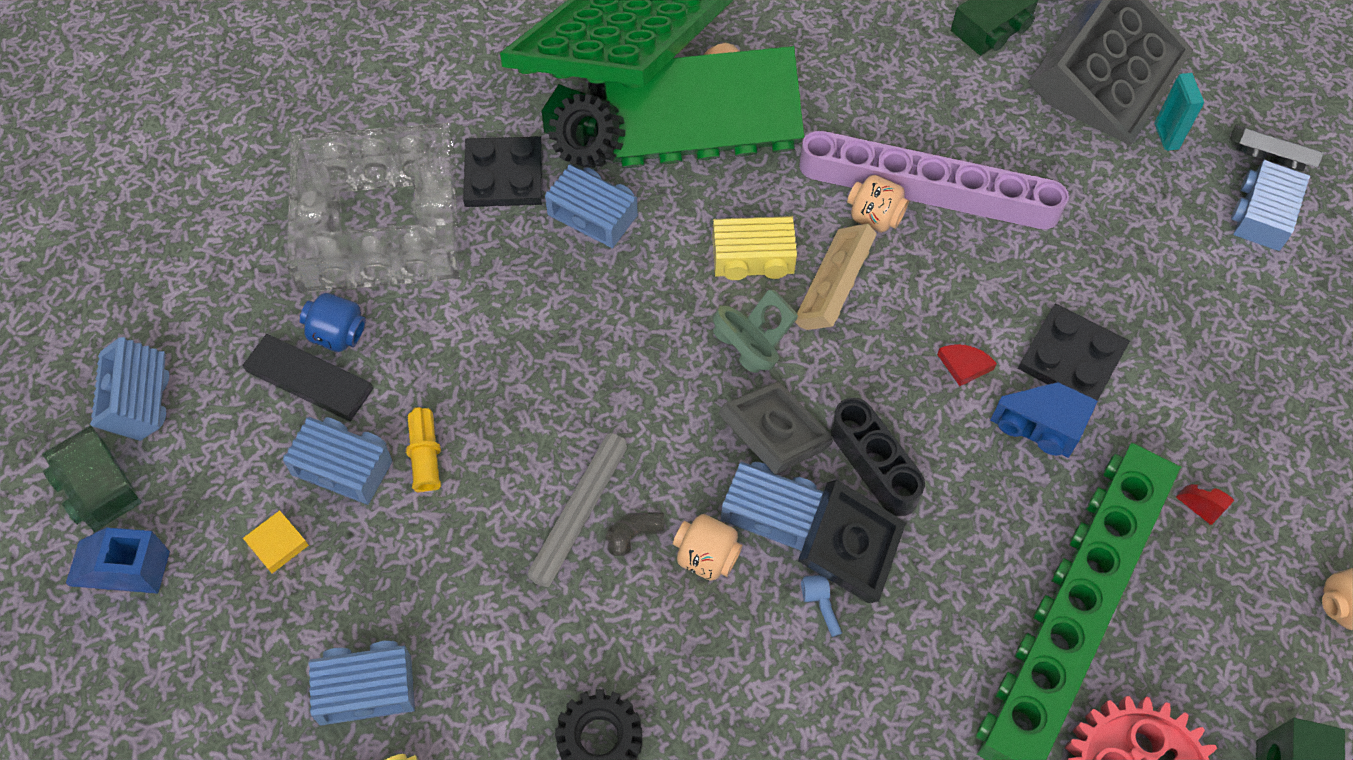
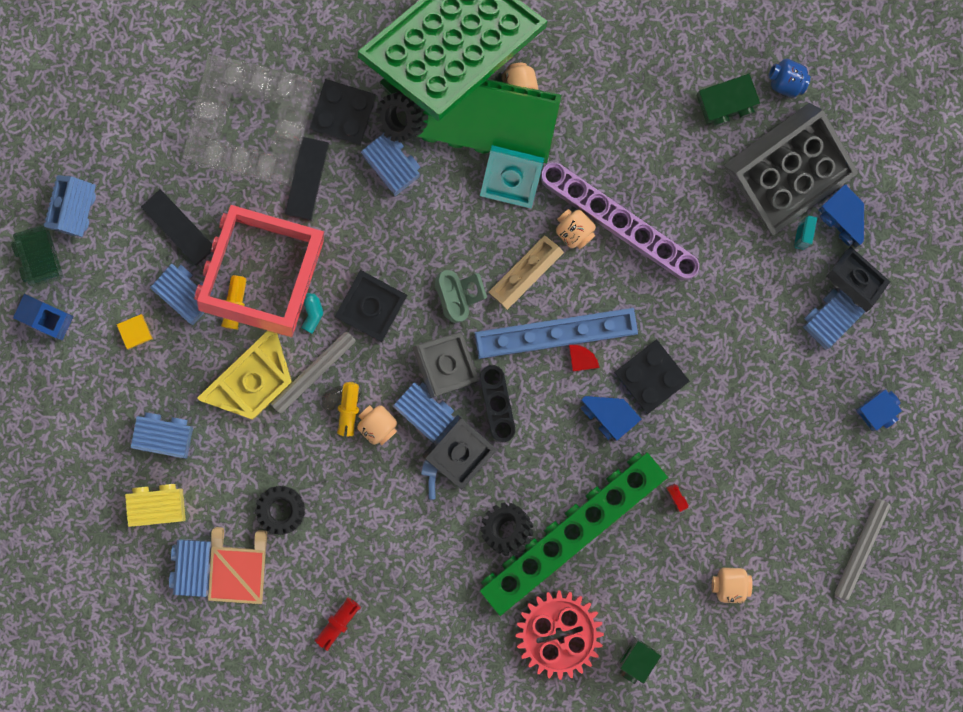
camera: 20 degrees right, 25 degrees up
(332, 322) = (202, 196): blue head -> none
(454, 436) = (281, 325): none -> coral window
(480, 262) = (307, 178): none -> black tile
(484, 550) = (251, 380): none -> light yellow wing
(550, 422) = (314, 311): none -> teal arm
(632, 389) = (371, 306): none -> black plate
(653, 536) = (348, 408): none -> yellow axle
(754, 247) = (482, 232): light yellow brick -> none
(764, 167) = (511, 176): none -> teal plate
(910, 344) = (556, 333): none -> medium blue tile
(992, 650) = (497, 519): none -> black tyre
(1221, 89) = (846, 213): none -> blue slope

